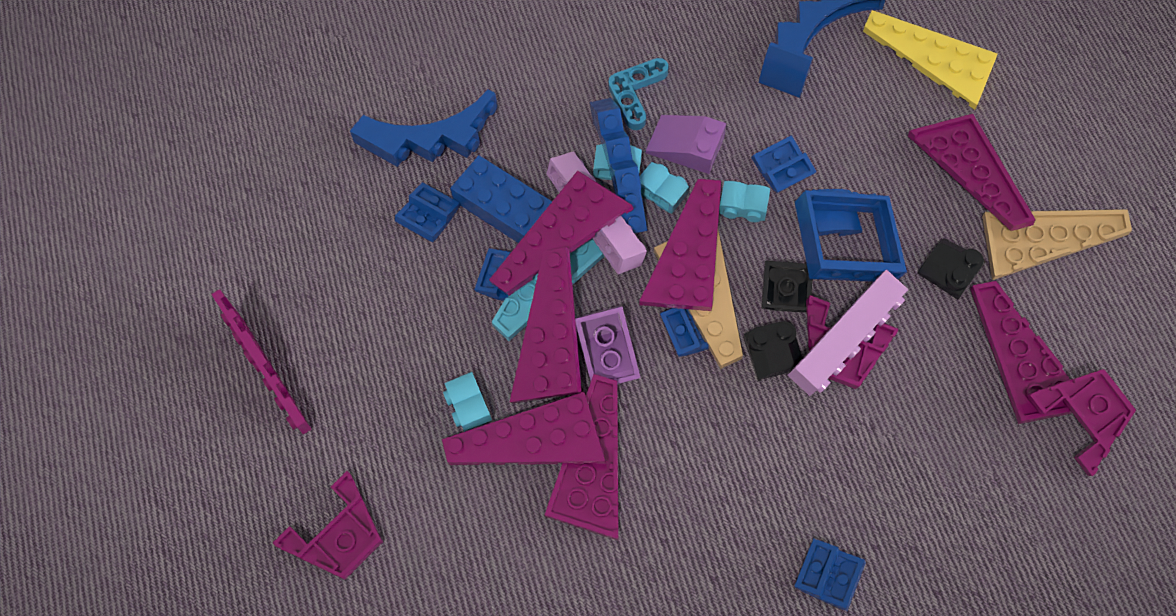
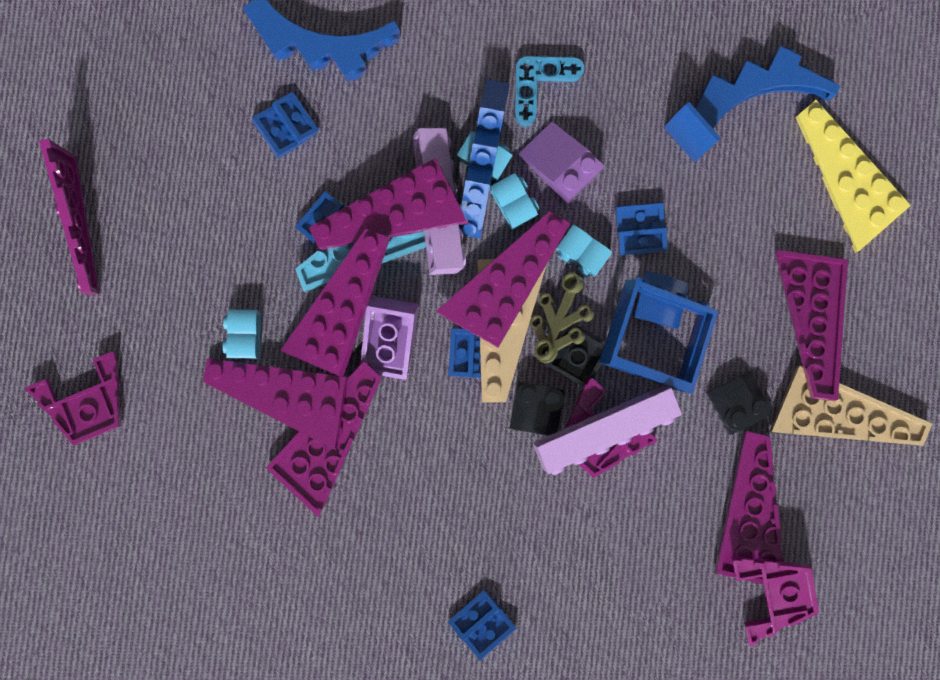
camera: 15 degrees right, 20 degrees up
(499, 198) = (356, 146): blue brick -> none
(756, 261) = (559, 321): none -> olive plant

